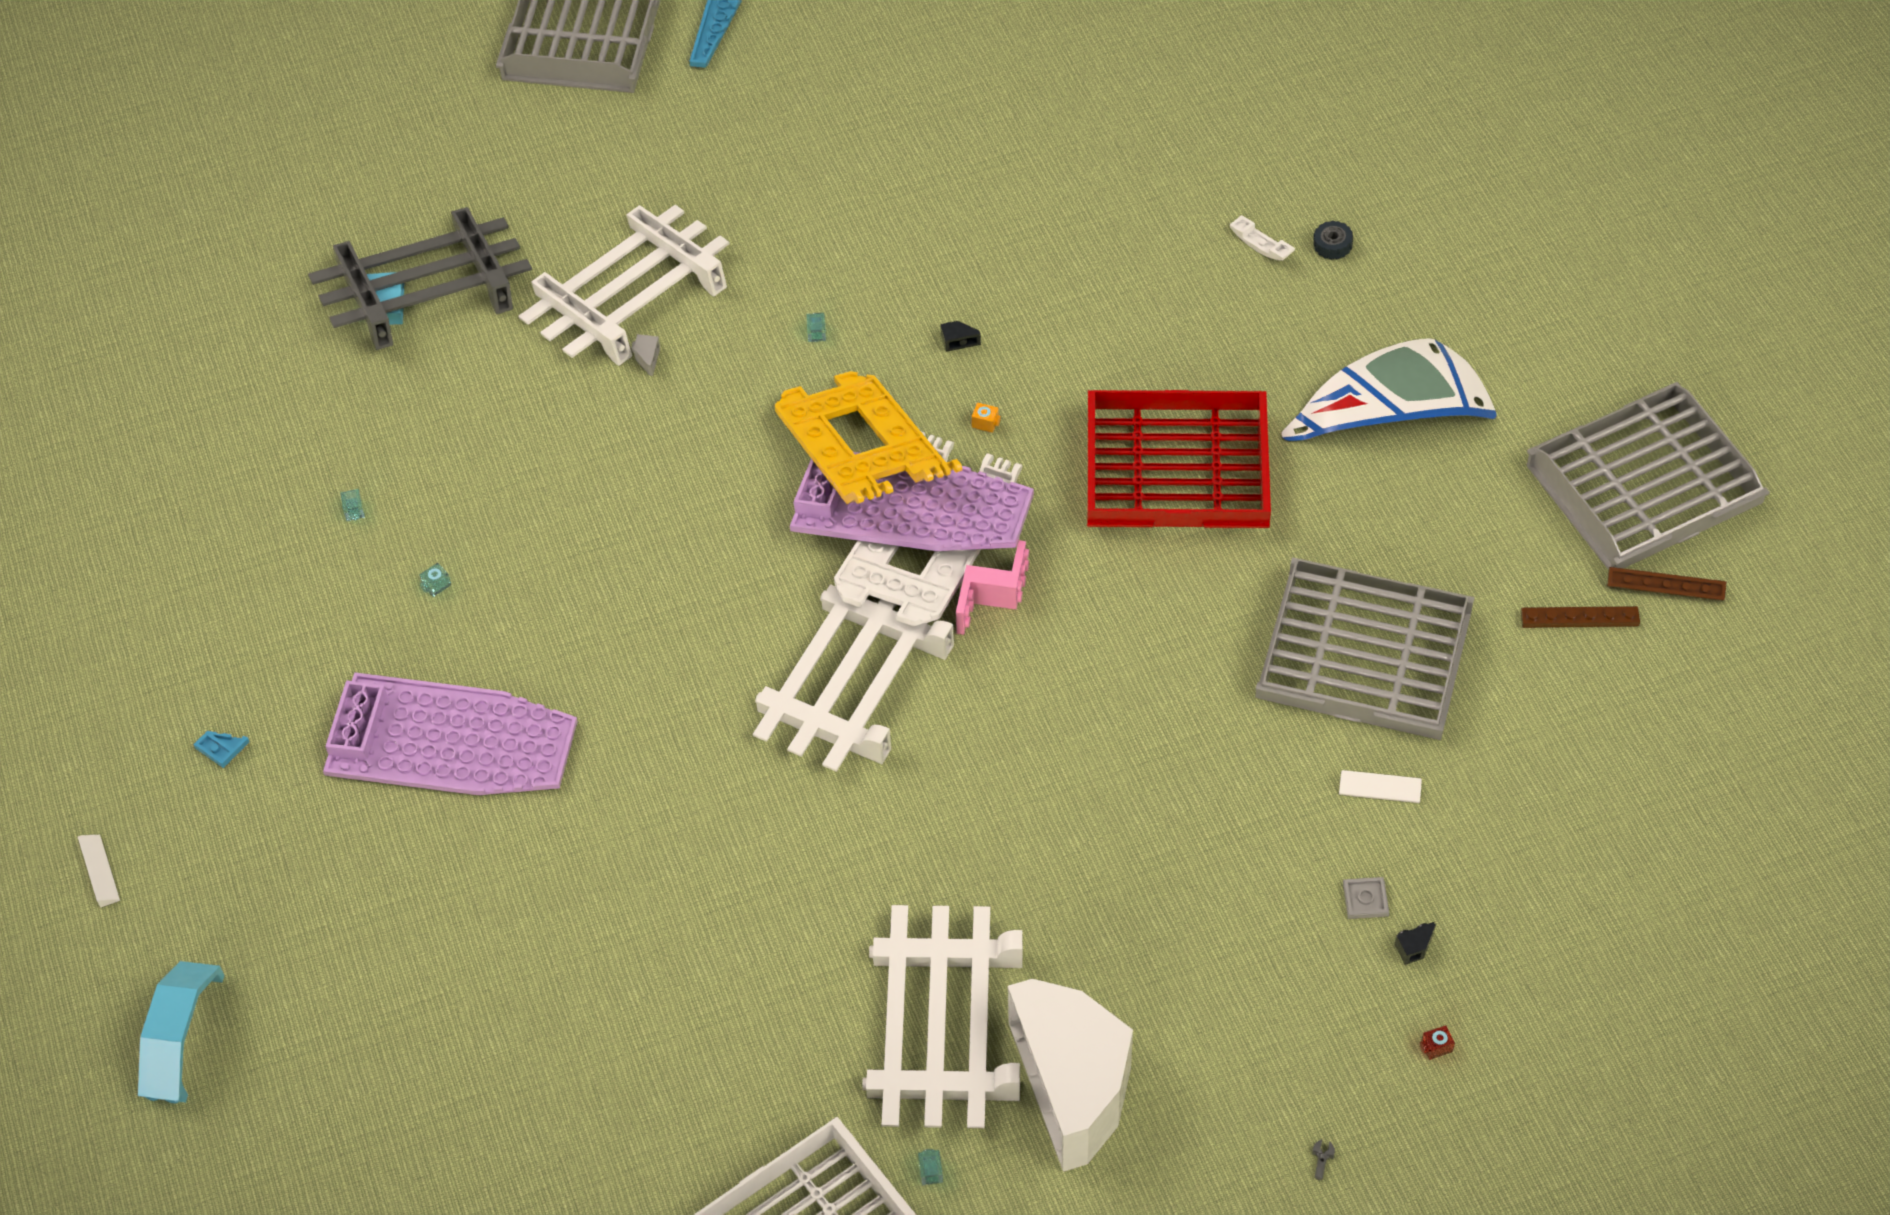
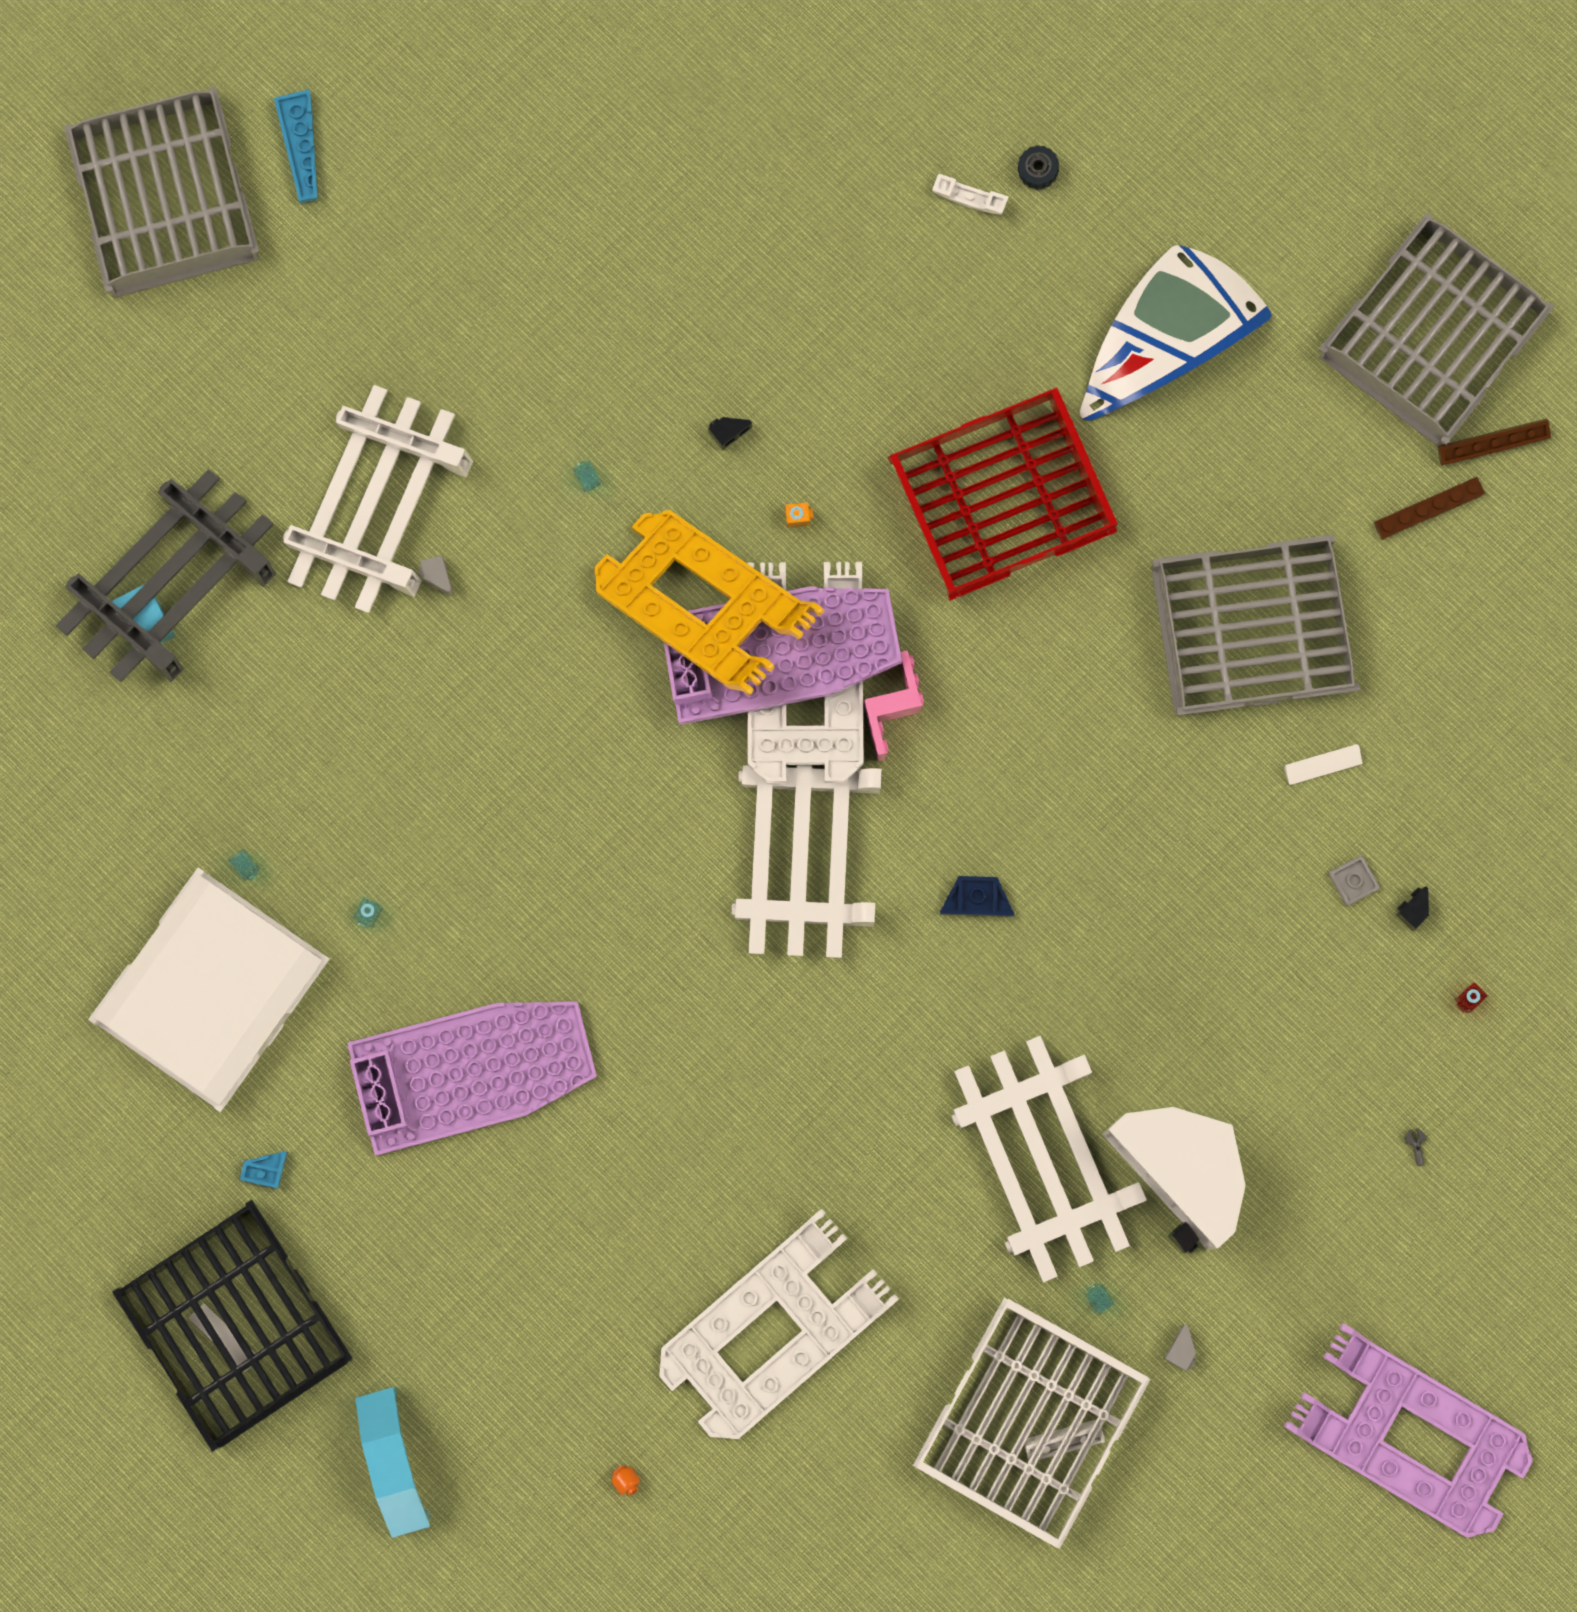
camera: 25 degrees left, 25 degrees up
(113, 934) = (252, 1359): none -> black bar
(262, 587) = (209, 989): none -> white panel
(384, 1141) = (625, 1480): none -> orange head
(645, 1089) = (823, 1334): none -> white bracket
(990, 773) = (977, 898): none -> dark blue wing
(1042, 1141) = (1184, 1238): none -> black slope

